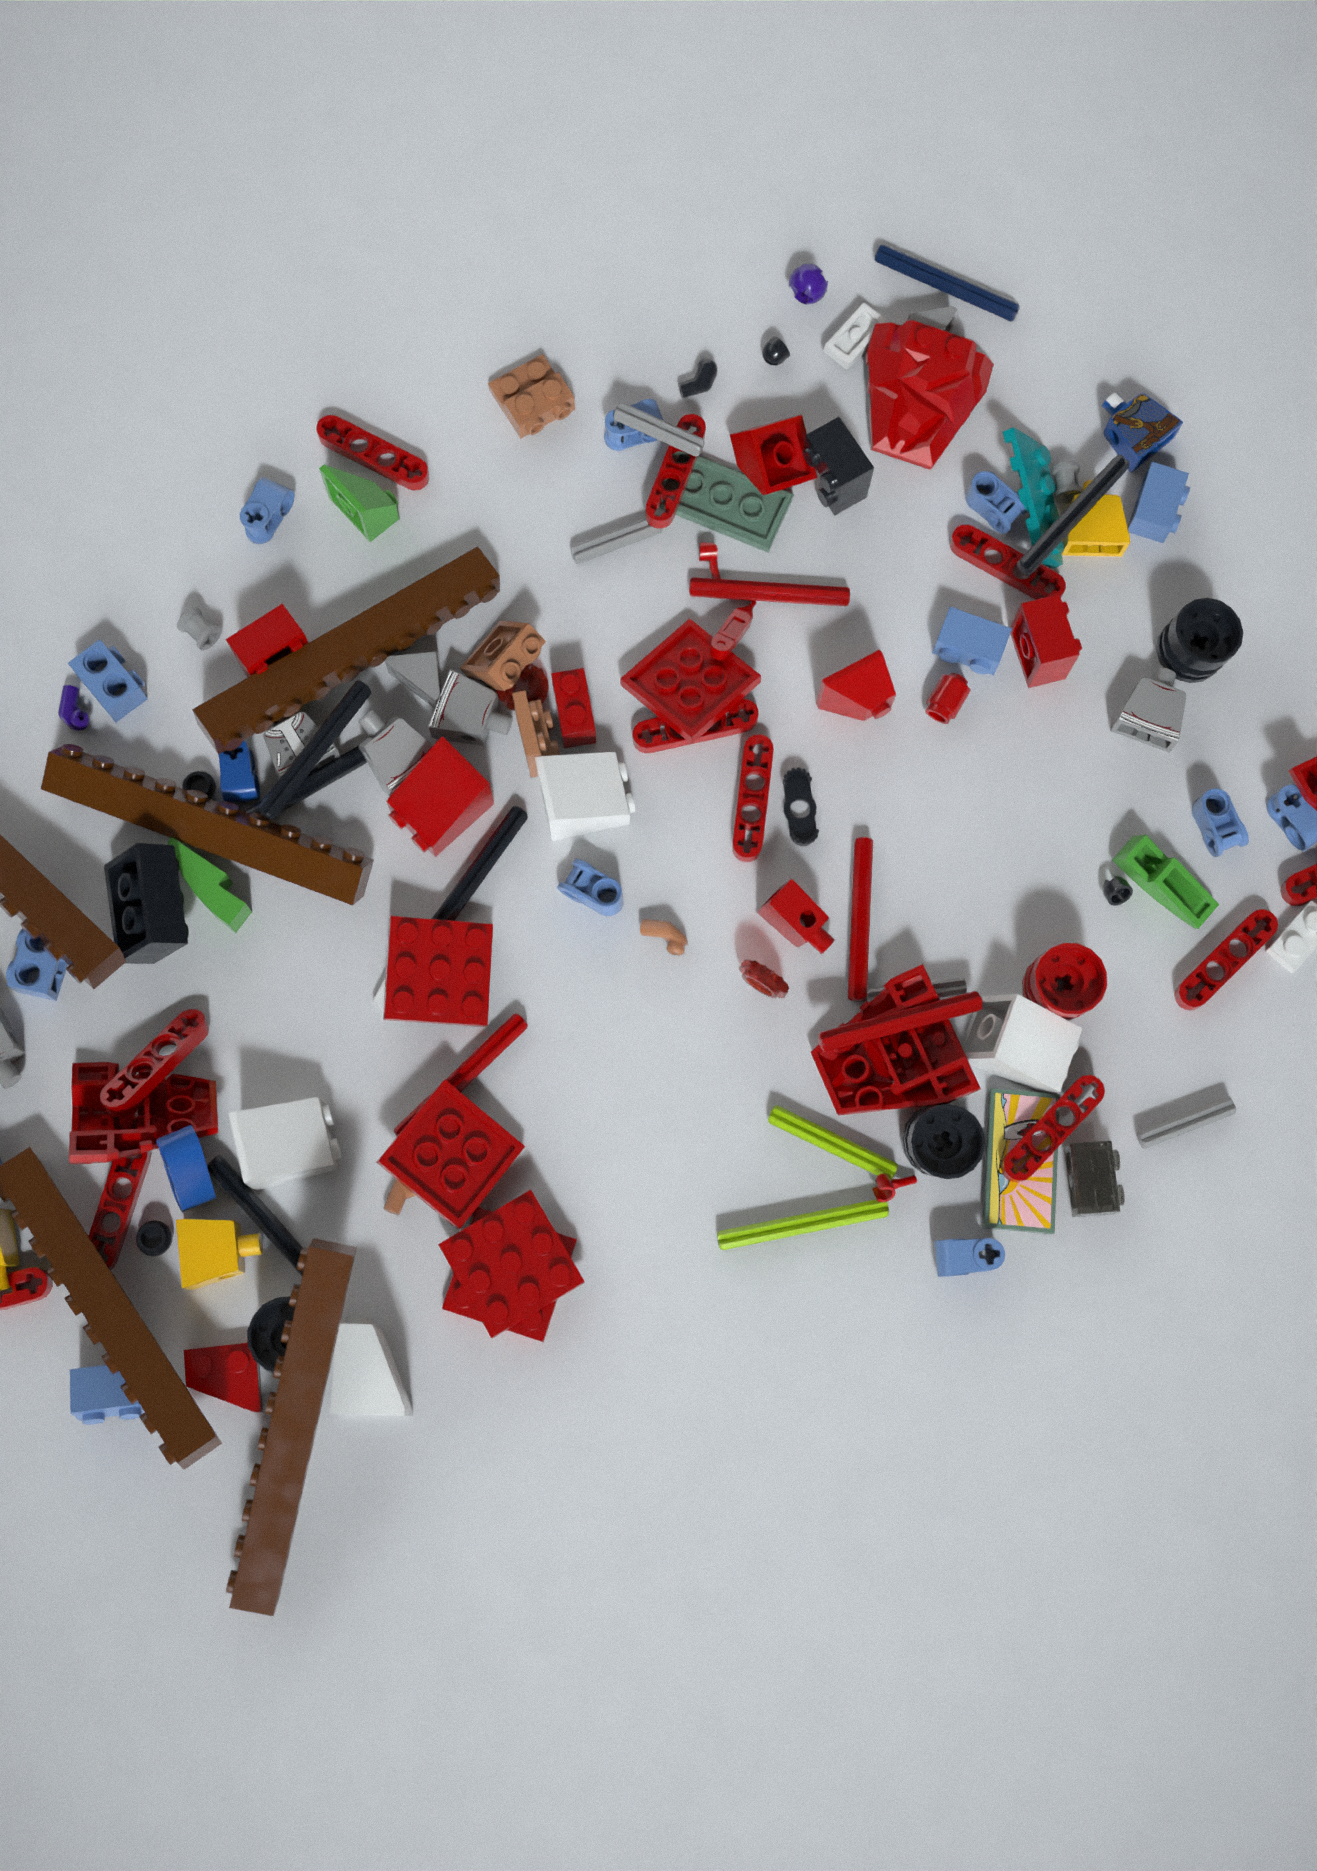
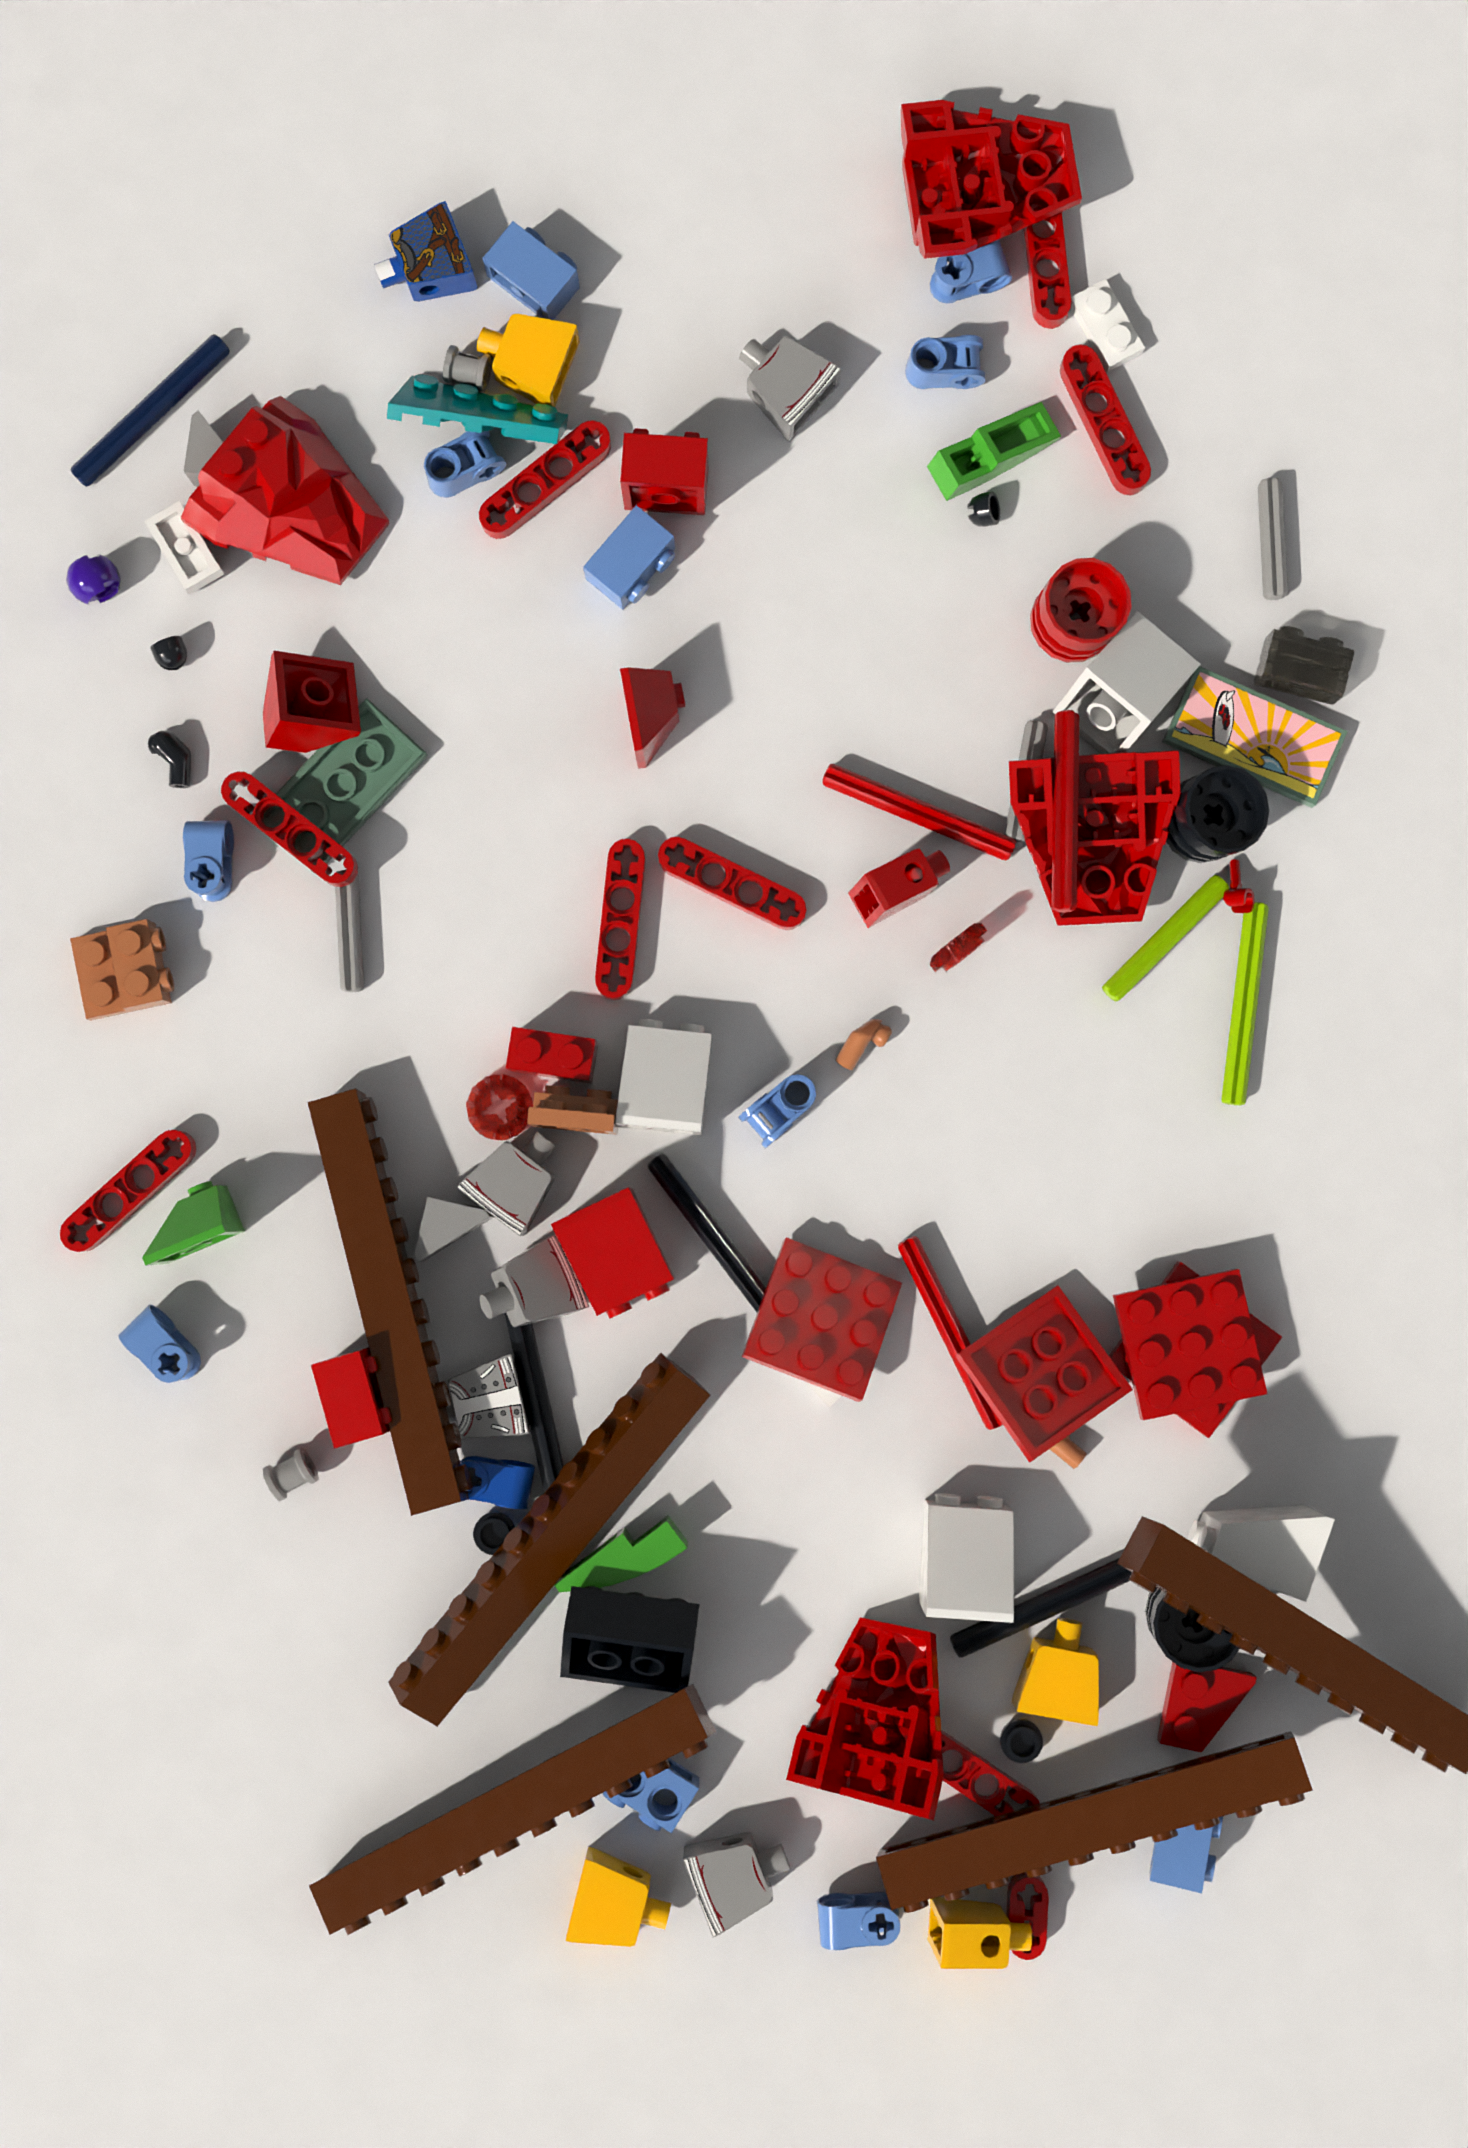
camera: 70 degrees left, 10 degrees up
(70, 712) = (343, 1662): dark purple arm -> none
(107, 681) = (324, 1613): medium blue brick -> none
(151, 1059) = (817, 1686): red beam -> none
(186, 1168) = (967, 1683): blue beam -> none
(314, 750) = (506, 1381): black axle -> none
(504, 654) = (458, 1116): nougat plate -> none
(659, 429) = (232, 830): light grey axle -> none
(688, 684) = (567, 905): red plate -> none
(709, 552) = (407, 825): red hand -> none
(731, 632) = (522, 834): red piece -> none
(769, 591) = (482, 772): red axle -> none
(798, 788) = (736, 827): black piece -> none
(841, 465) = (354, 629): black brick -> none
(947, 698) = (689, 612): red brick -> none
(961, 1256) = (1341, 842): medium blue piece -> none
(1050, 1126) = (1229, 690): red beam -> none
(1073, 515) = (521, 377): black axle -> none
(1199, 640) = (728, 273): black wheel -> none

